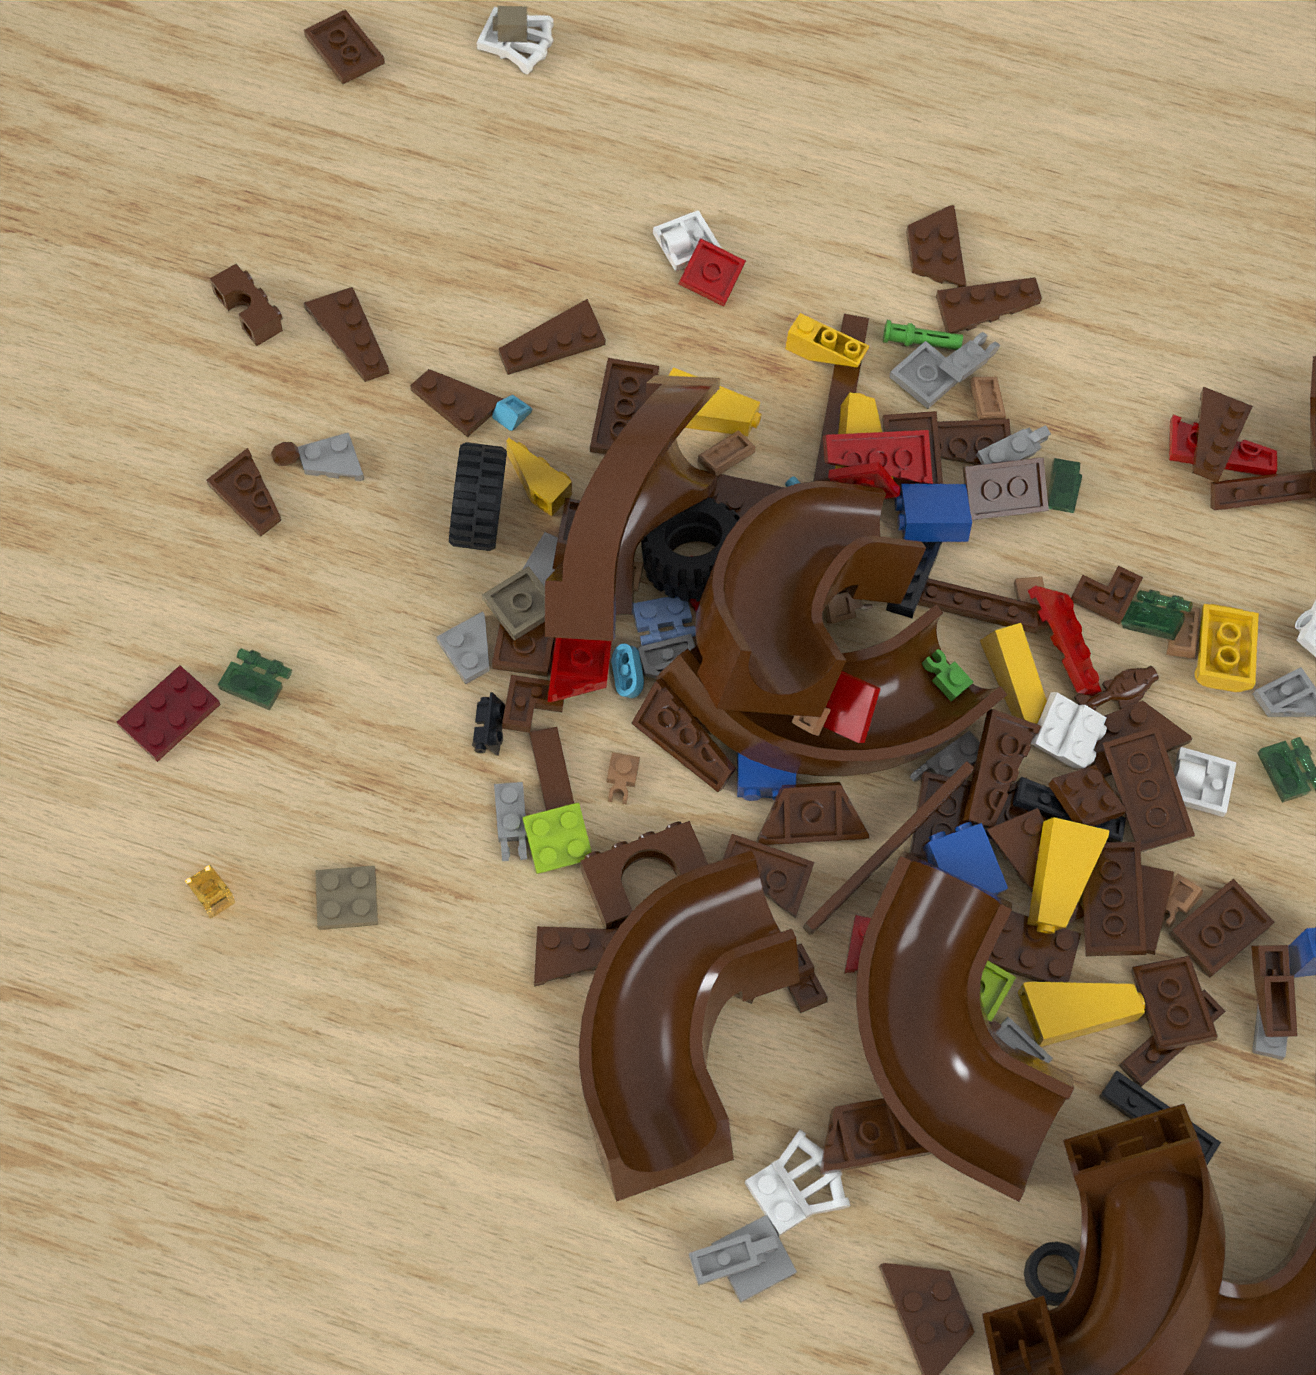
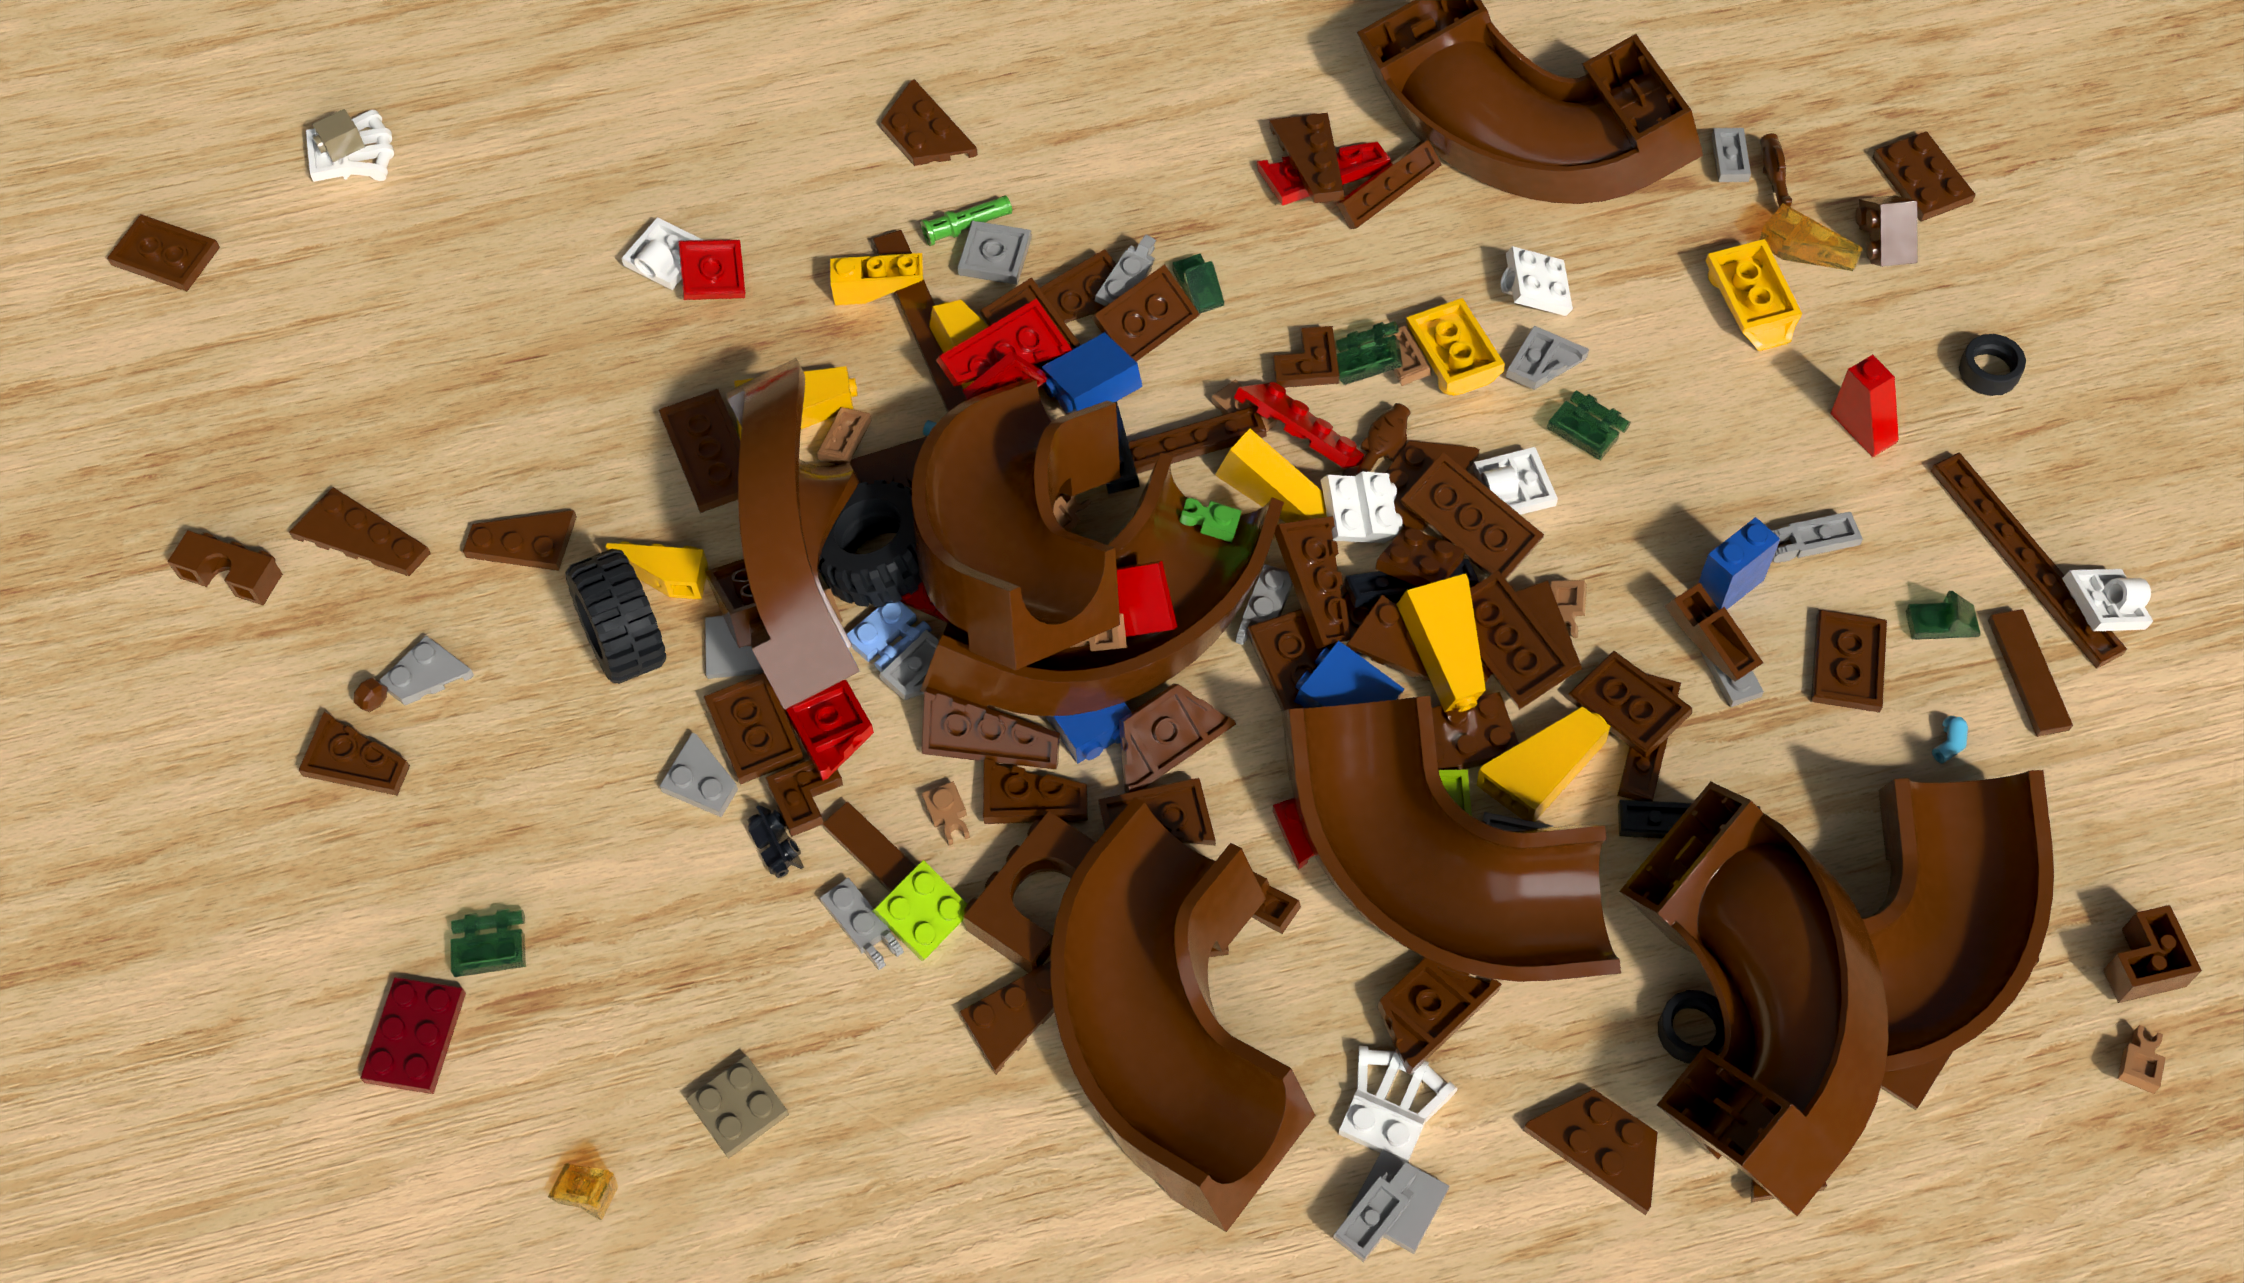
camera: 25 degrees left, 5 degrees down
(511, 412) = (590, 520): medium azure slope -> none
(518, 602) = (729, 699): dark tan plate -> none
(558, 338) = (592, 418): reddish brown wing -> none
(627, 671) = (885, 706): medium azure plate -> none
(683, 800) = (1023, 797): none -> reddish brown wing
(888, 848) = (1264, 718): reddish brown tile -> none
(969, 358) = (1026, 213): light grey hinge -> none
(972, 305) = (999, 160): reddish brown wing -> none
(987, 398) = (1069, 242): medium nougat plate -> none
(1221, 928) = (1625, 608): reddish brown plate -> none

